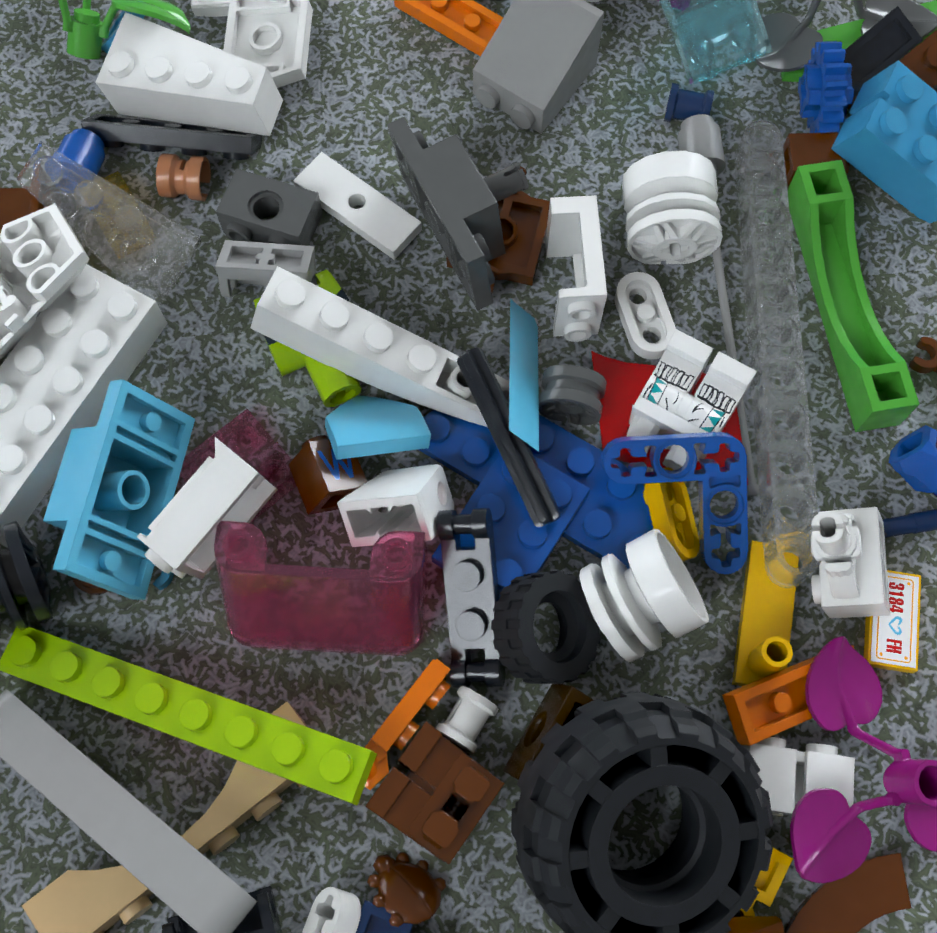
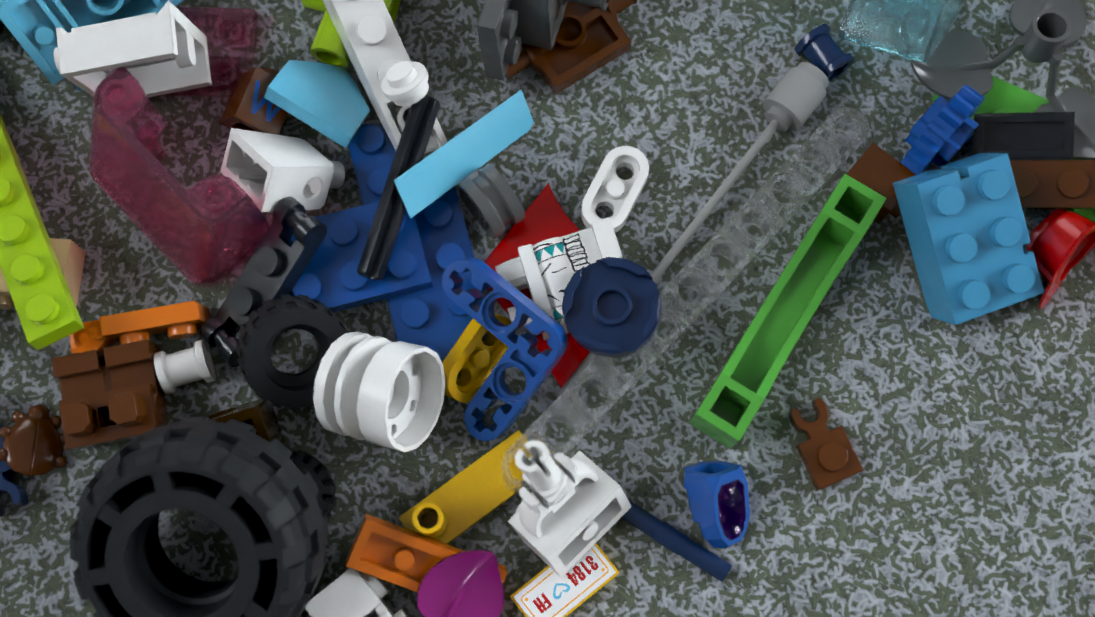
camera: 40 degrees right, 5 degrees up
(446, 352) = (405, 83): none -> white plate
(575, 232) = (616, 83): white panel -> none
(671, 208) = (711, 122): white wheel -> none
(745, 388) = (612, 307): none -> dark blue tile

